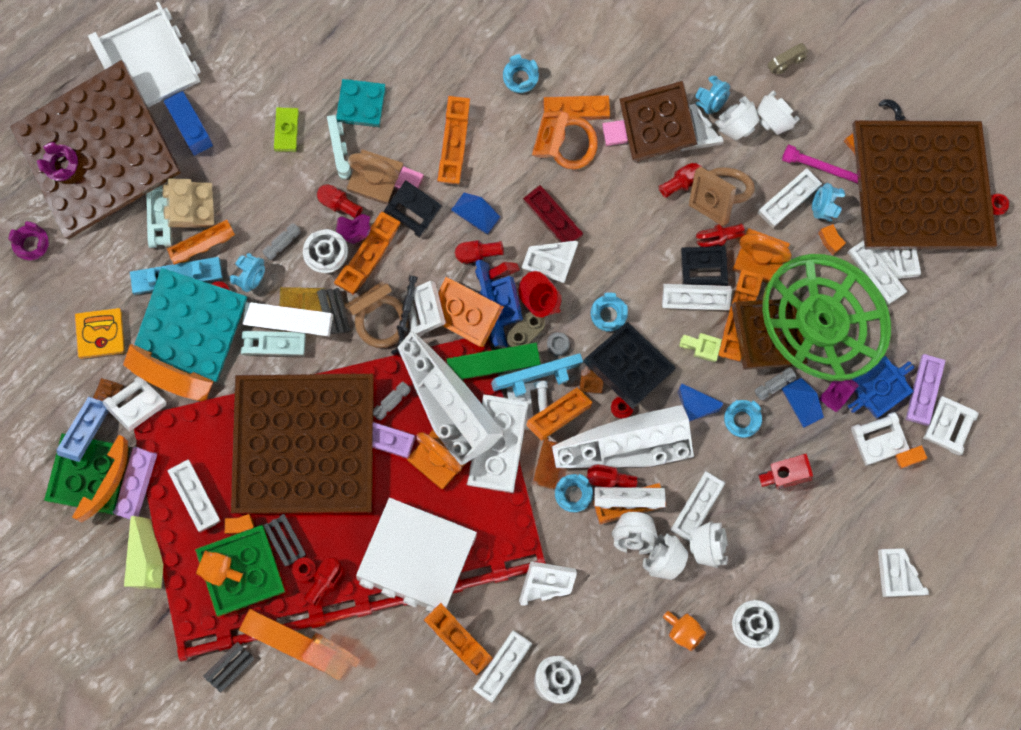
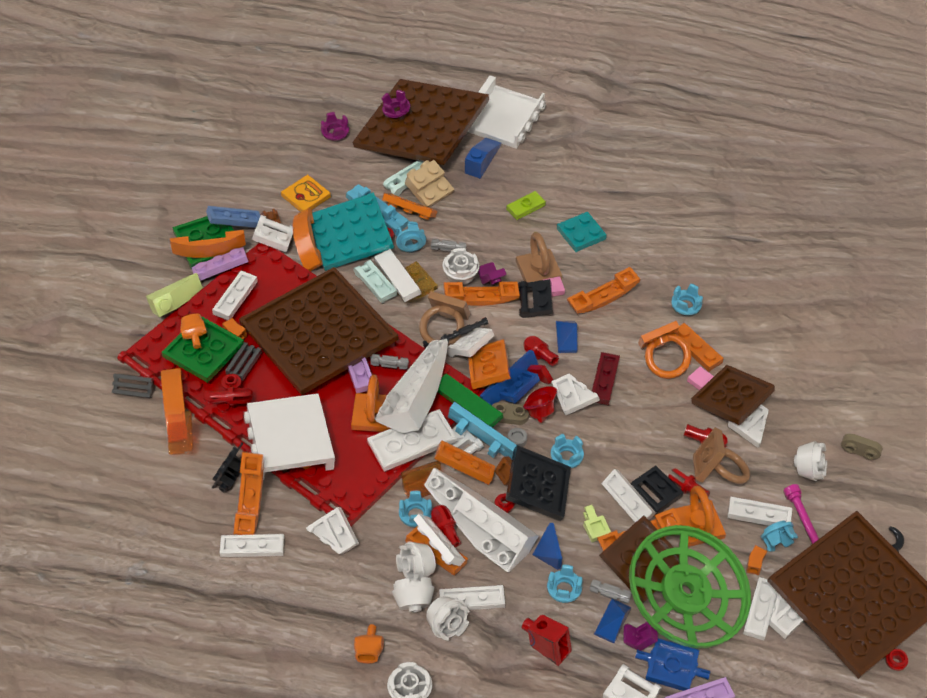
camera: 55 degrees right, 25 degrees down
(337, 200) = (503, 255): red arm -> none
(337, 309) = (435, 288): dark grey tile -> none
(339, 148) = (546, 228): light aqua plate -> none
(399, 628) = (228, 471): none -> black hinge
(557, 679) = (265, 577): white cone -> none
(714, 99) = (780, 410): medium azure piece -> none
(738, 119) = (783, 439): white cone -> none

